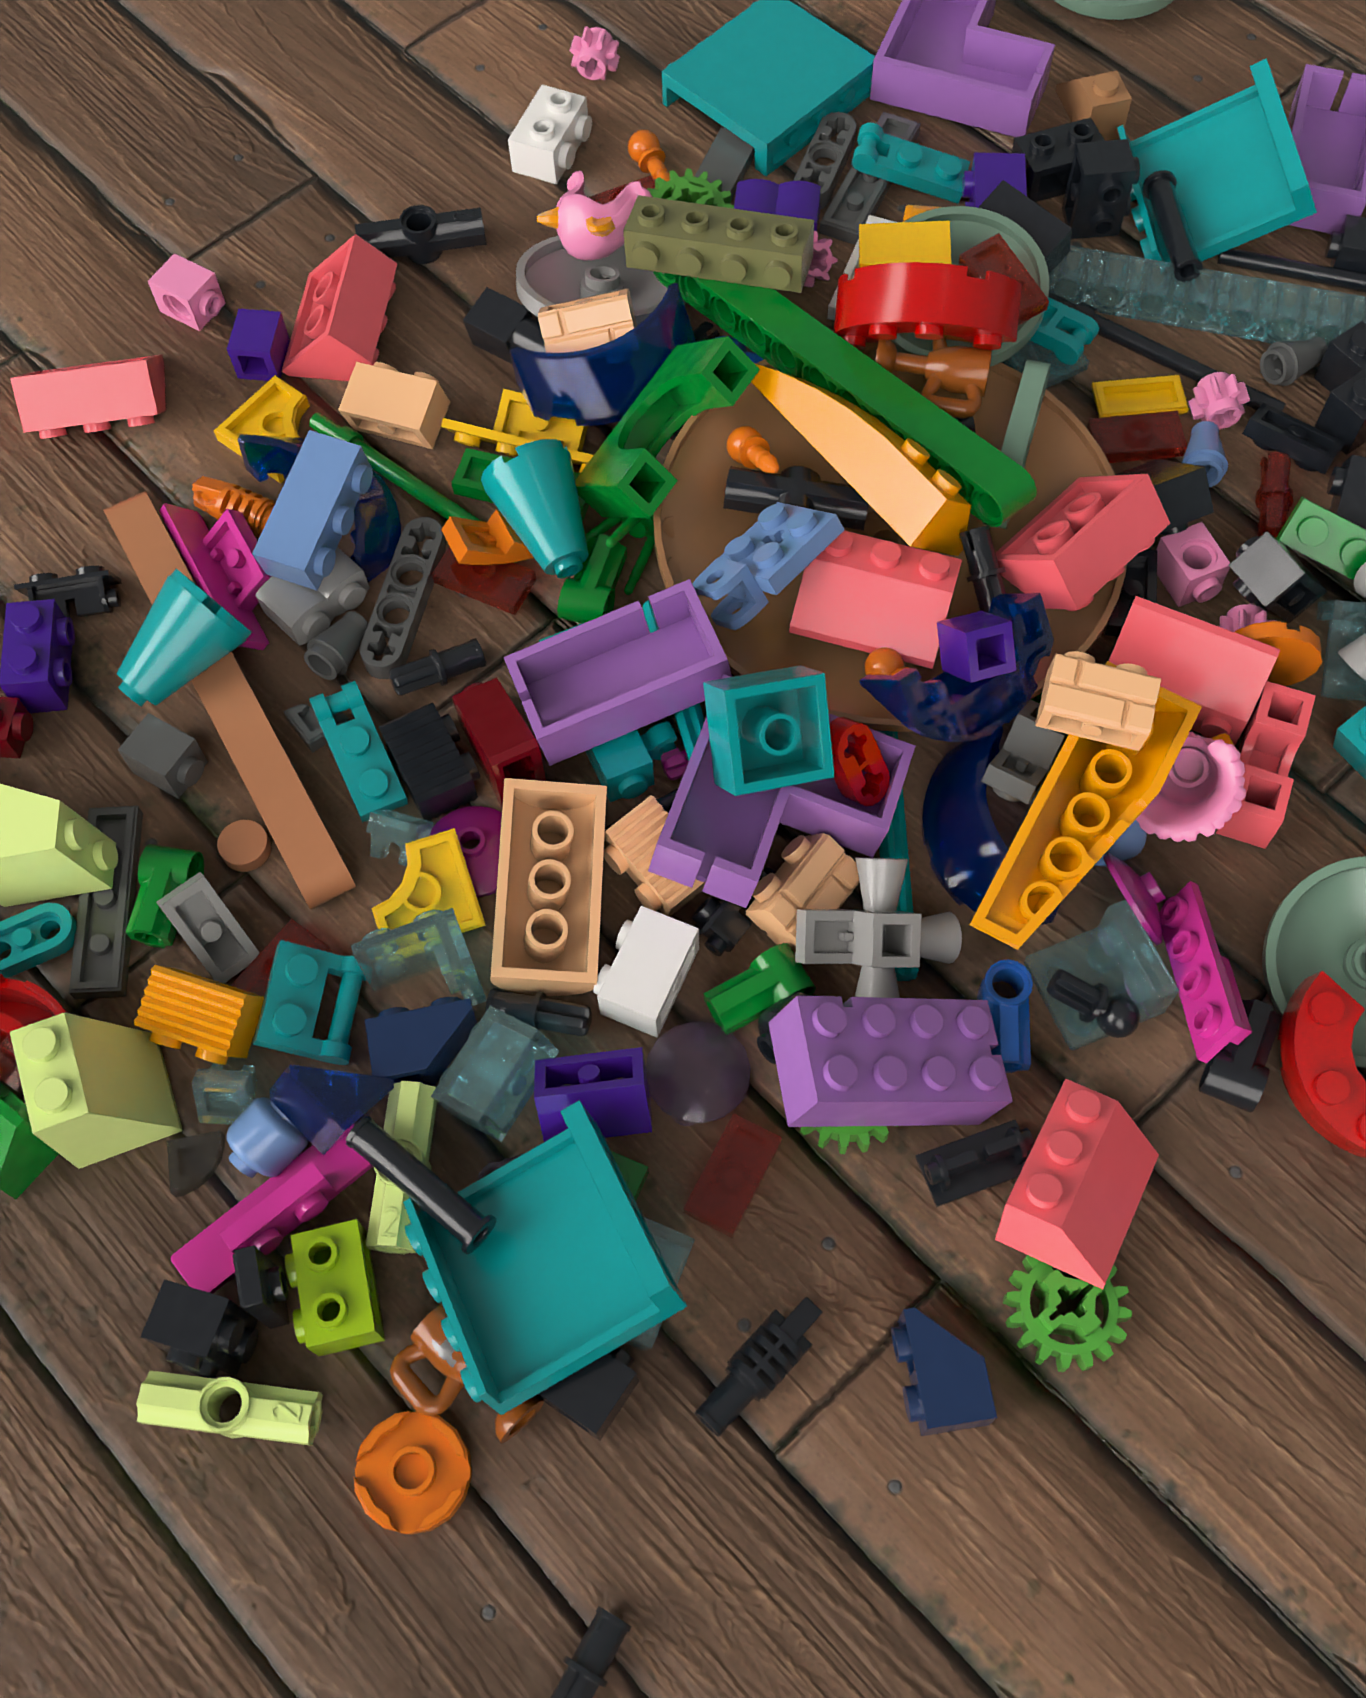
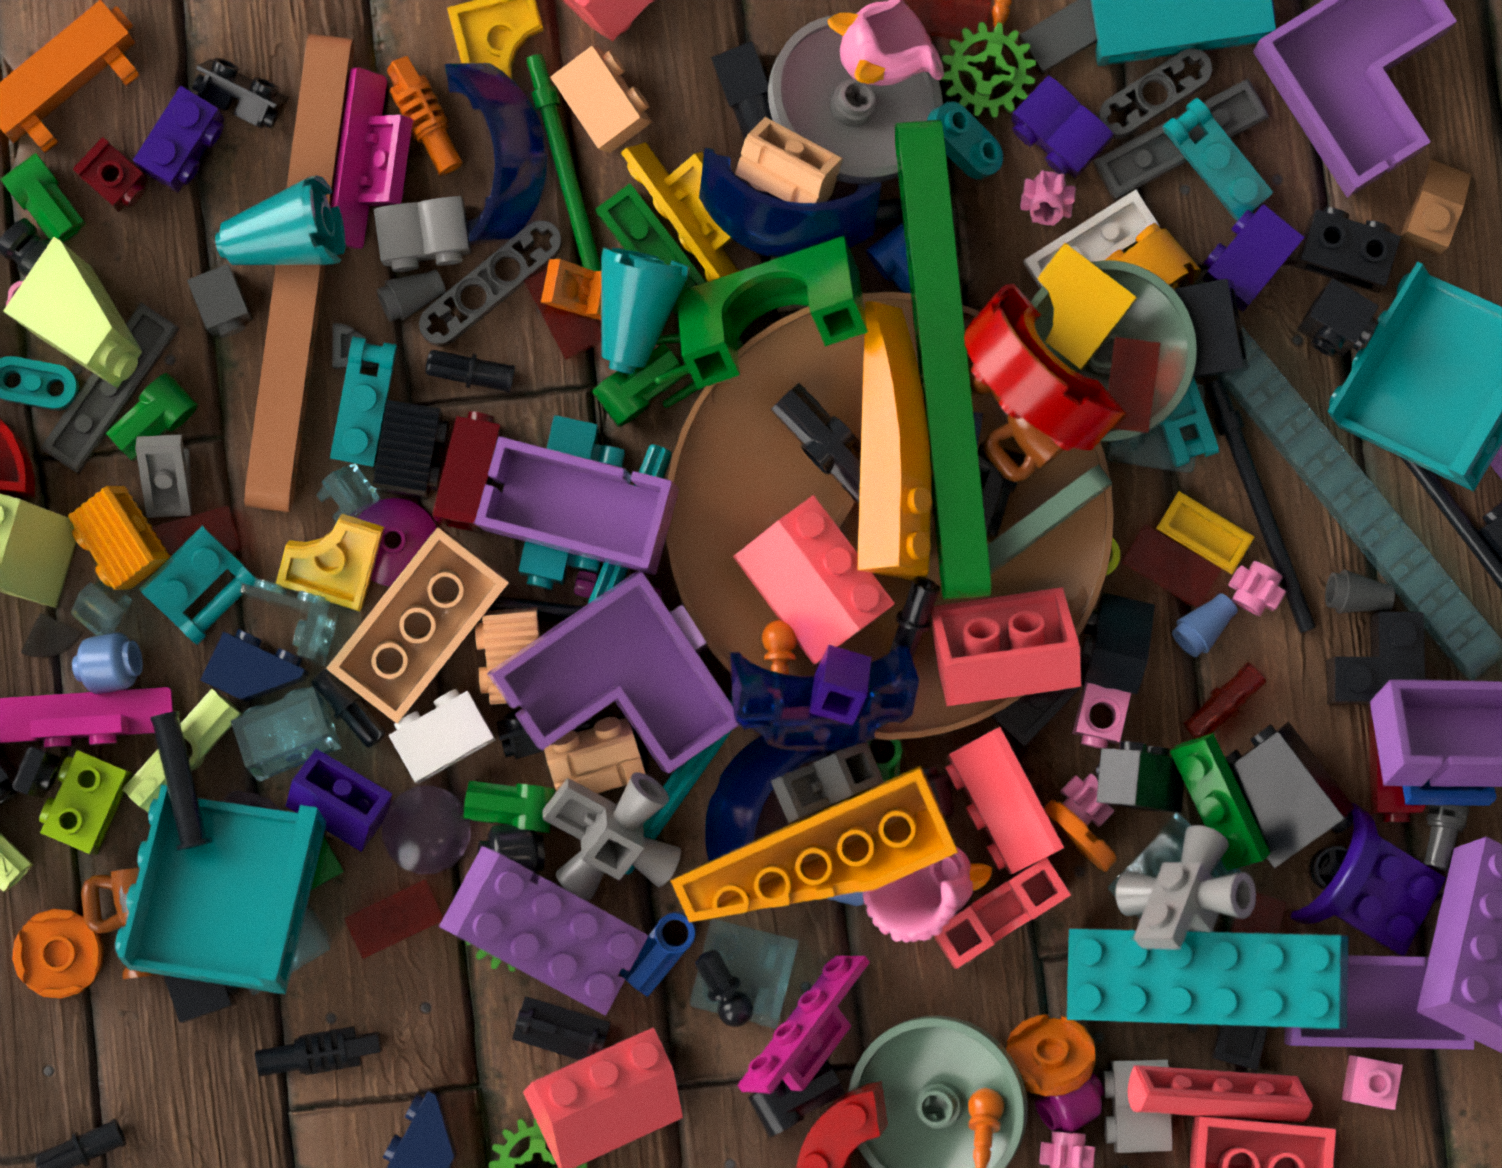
camera: 30 degrees right, 20 degrees up
(244, 845) = (233, 416): nougat tile -> none
(313, 510) = (457, 184): medium blue brick -> none
(326, 1101) = (158, 681): clear blue slope -> none
(719, 243) = (938, 177): olive brick -> none
(749, 448) = (826, 373): orange bar -> none
(765, 560) = (735, 498): medium blue plate -> none
(769, 729) = (632, 647): teal brick -> none
(864, 756) = (691, 703): red beam -> none
(1098, 700) = (877, 798): light nougat brick -> none
(1140, 893) = (813, 940): magenta dish -> none
(1161, 192) = (1362, 403): black pin -> none
(1305, 444) = (1286, 665): black plate -> none

